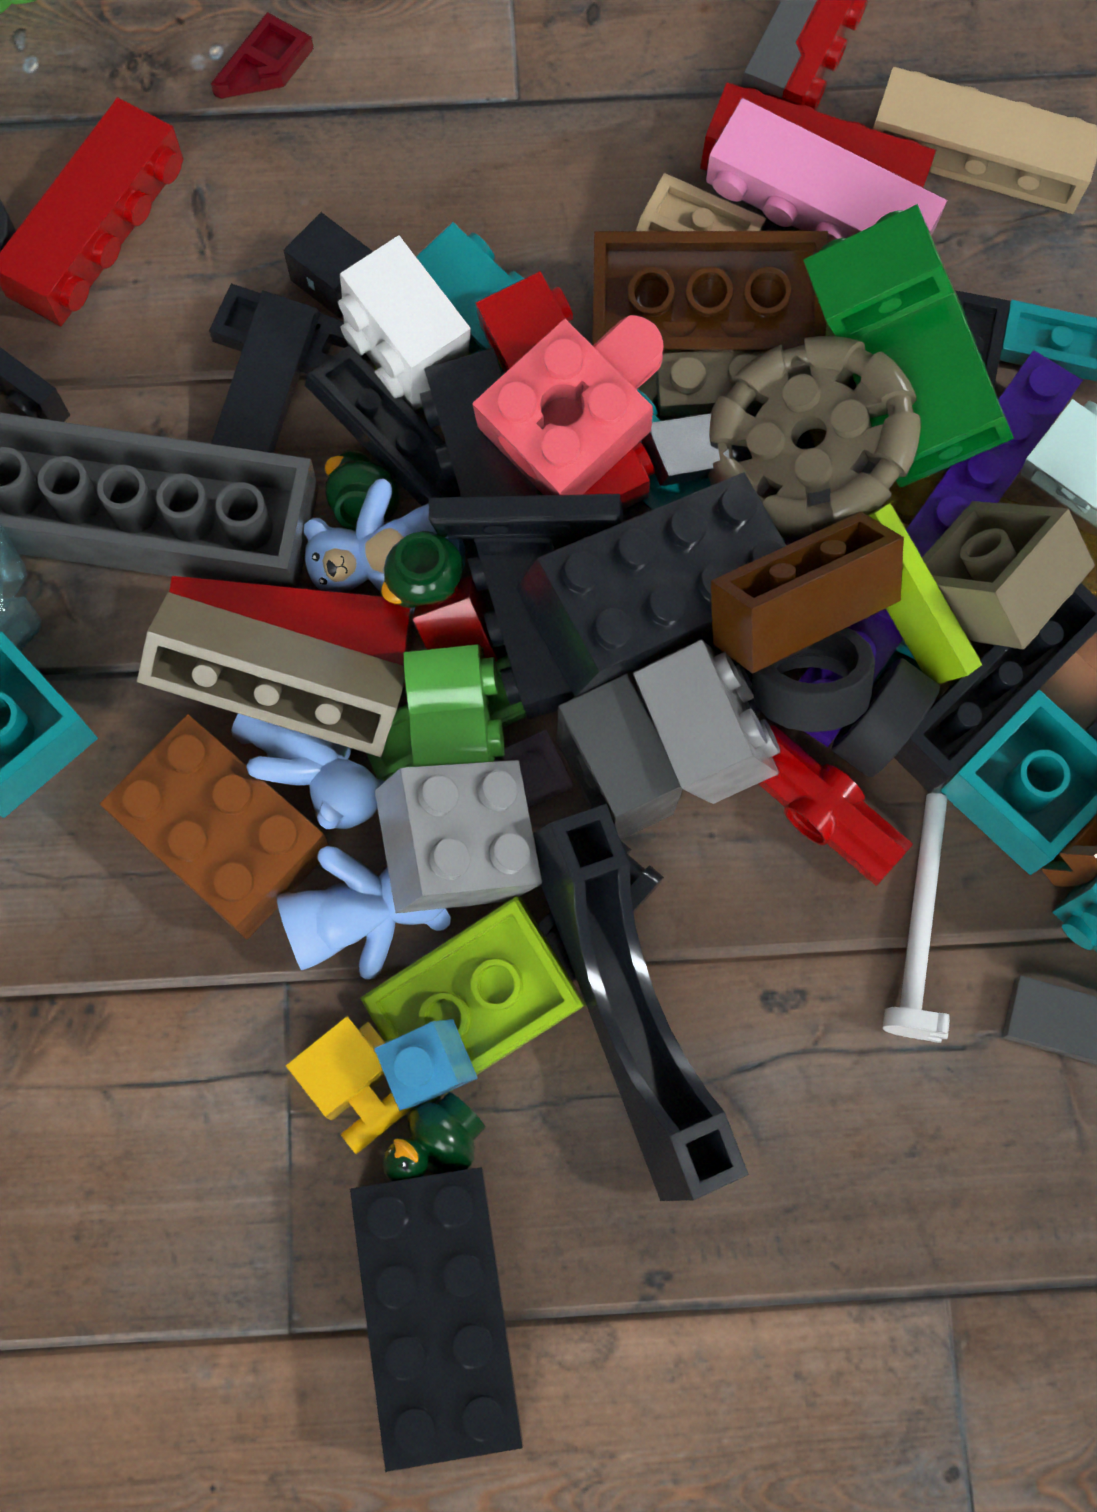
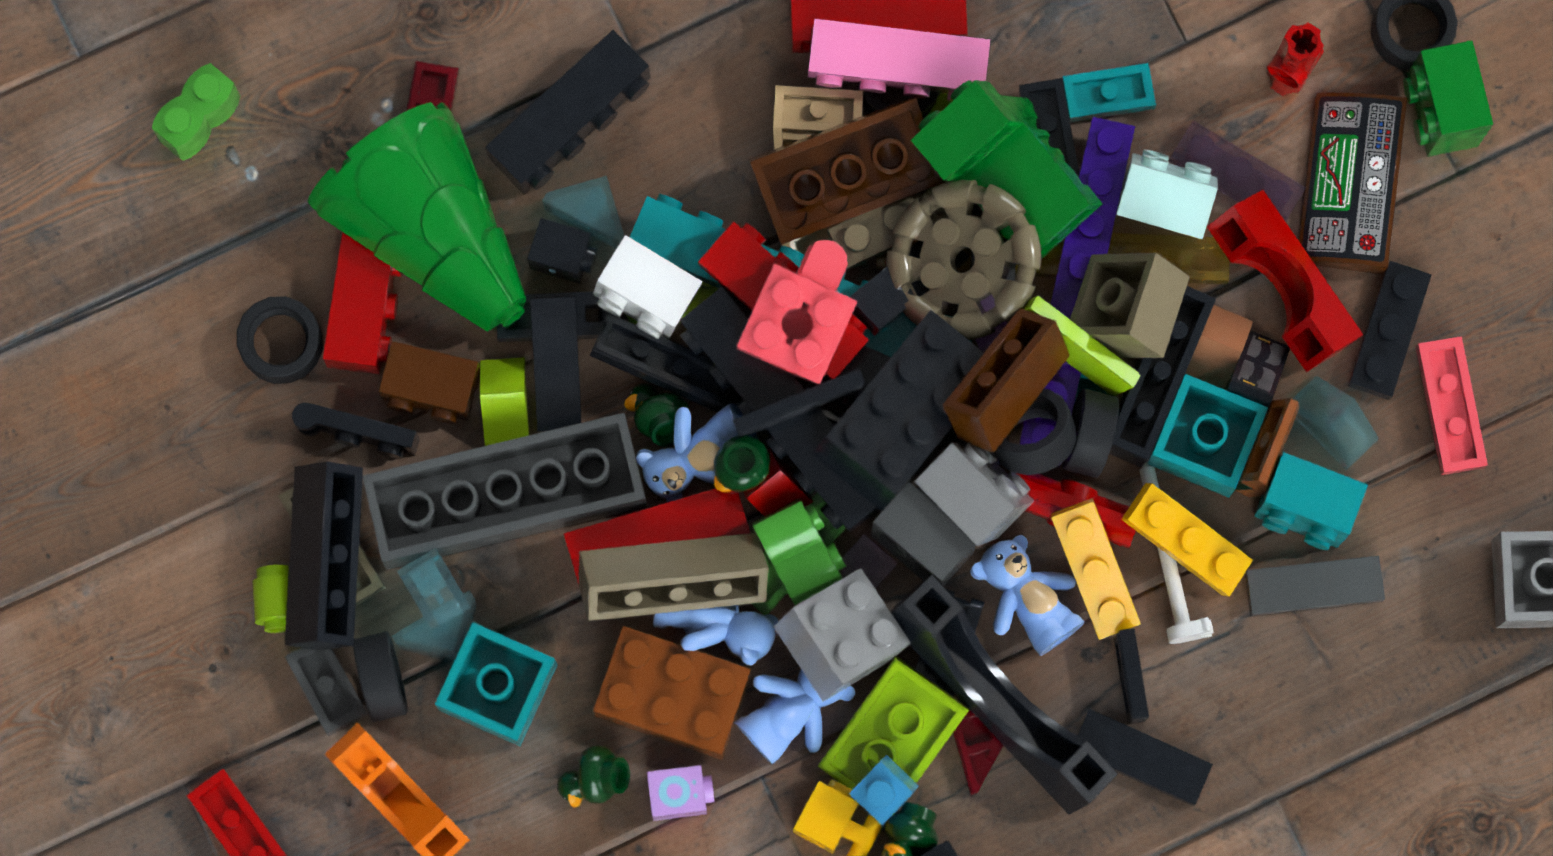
camera: 20 degrees left, 5 degrees up
(72, 894) = (597, 778): none -> dark green animal
(106, 348) = (429, 382): none -> reddish brown brick
(166, 957) = (679, 792): none -> lavender brick
(185, 398) = (503, 399): none -> lime slope
(187, 137) = (426, 213): none -> green cone
(380, 217) = (588, 208): none -> clear light blue slope
(412, 123) = (569, 112): none -> black brick
(574, 1064) = (976, 750): none -> dark red tile
(726, 891) = (1027, 593): none -> light blue piece
(795, 1168) = (1146, 758): none -> black tile
(816, 1050) = (1131, 676): none -> black tile
(824, 892) = (1095, 568): none -> yellow plate
(958, 903) = (1187, 539): none -> yellow plate

